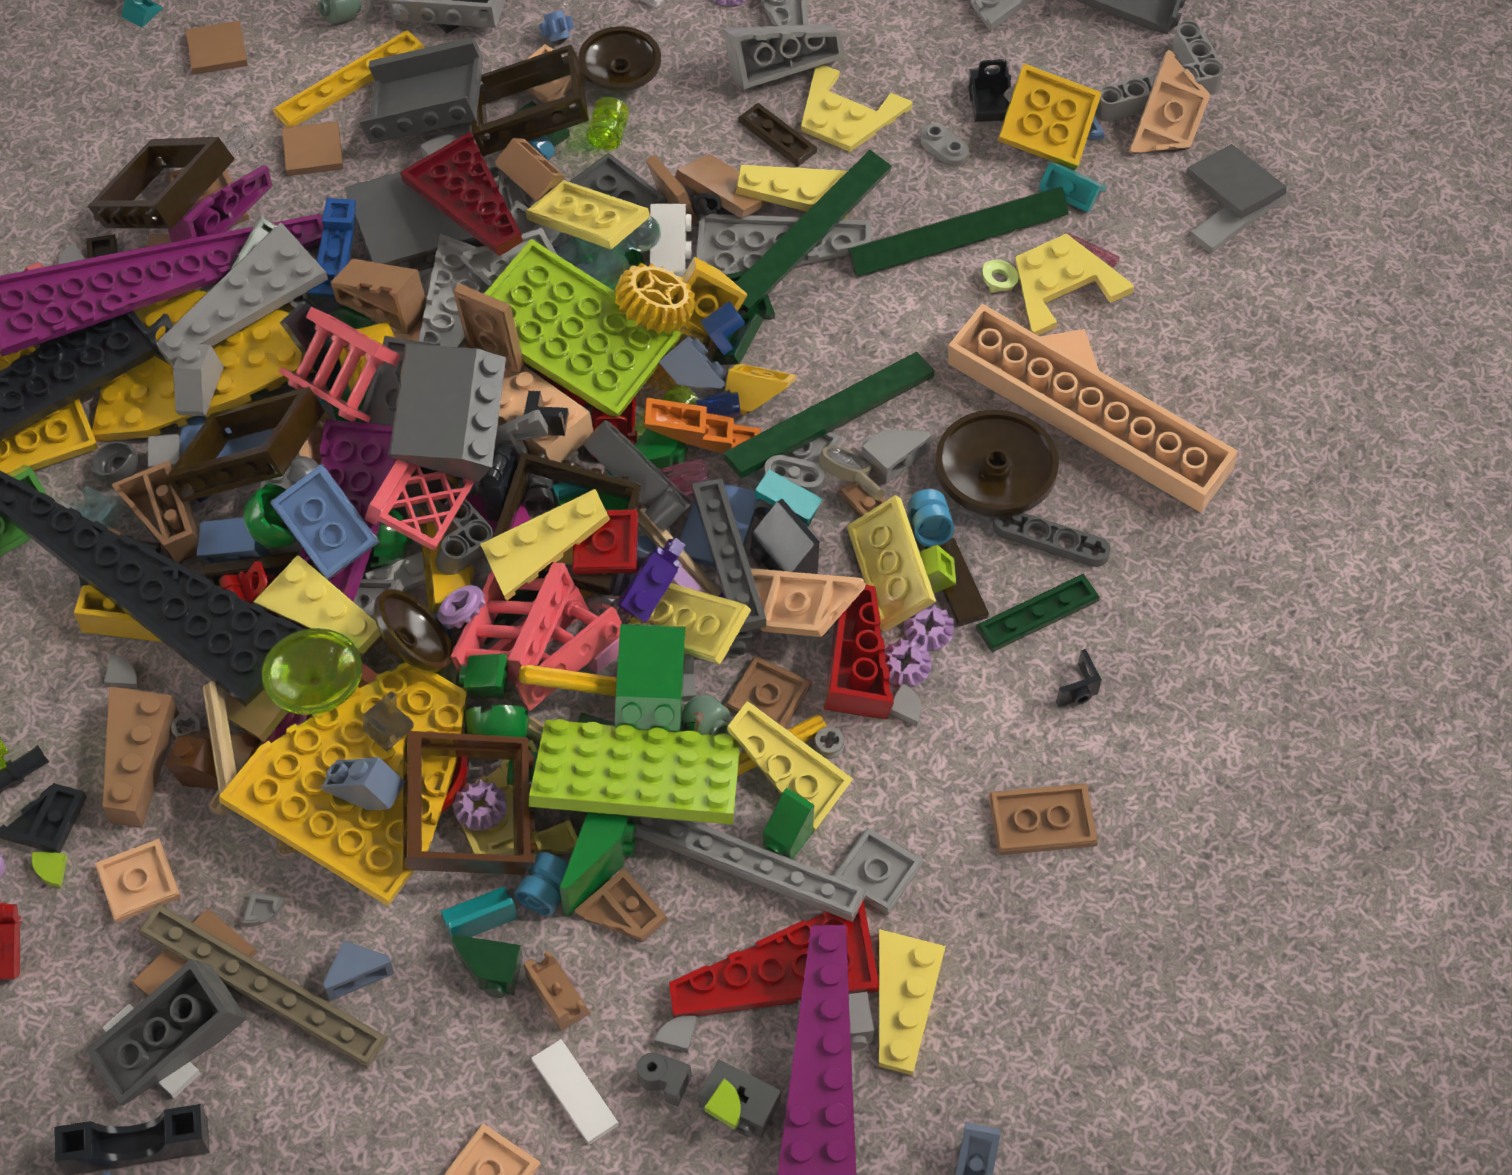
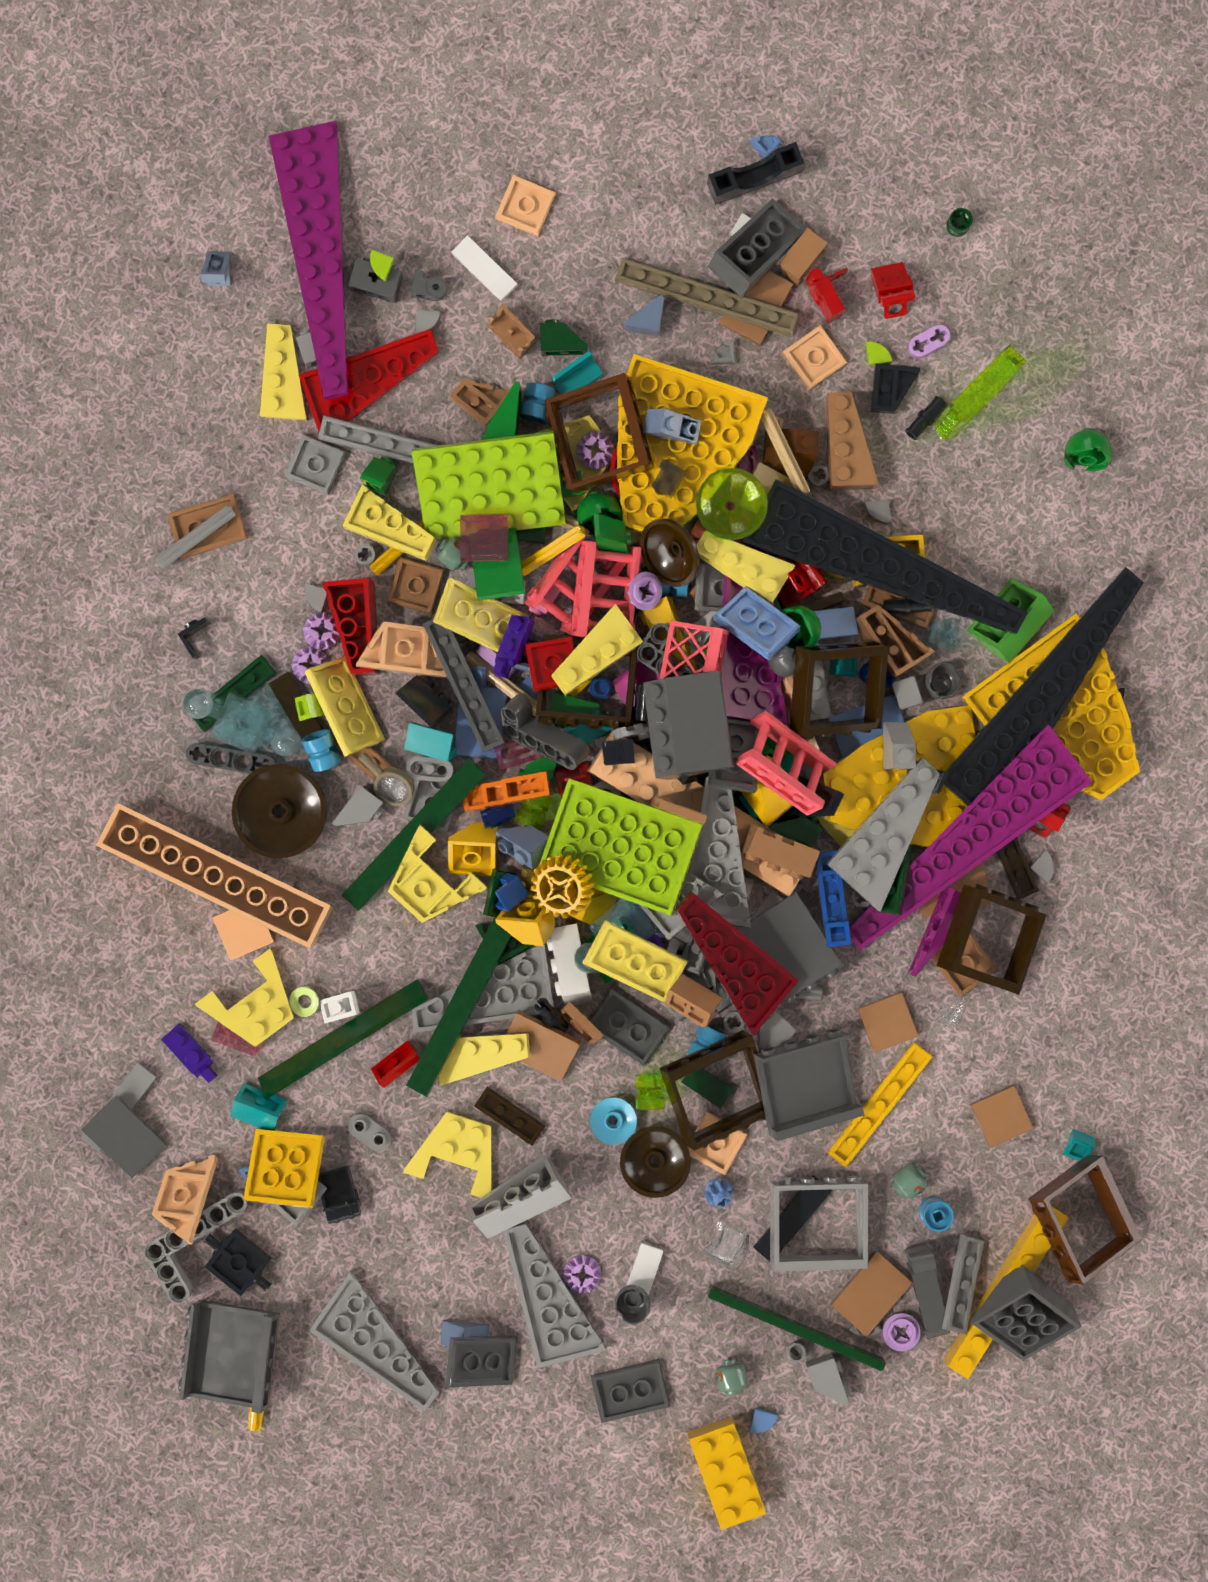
camera: 170 degrees right, 30 degrees up
(93, 953) = (825, 294): none -> red piece
(102, 1009) = (802, 256): none -> medium nougat hinge
(230, 506) = (843, 667): none -> teal slope
(658, 98) = (613, 1133): none -> medium azure dish
(659, 704) = (484, 537): none -> clear pink tile
(706, 567) = (480, 676): none -> medium blue tile
(829, 356) = (423, 889): none -> light yellow wing
(900, 197) = (395, 1064): none -> red plate
(956, 256) = (339, 1007): none -> white slope
(1030, 565) = (200, 704): none -> clear light blue brick
(1060, 799) = (195, 537): none -> light grey axle
(1116, 52) = (238, 1262): none -> black plate
(1147, 249) = (189, 1052): none -> dark purple hinge

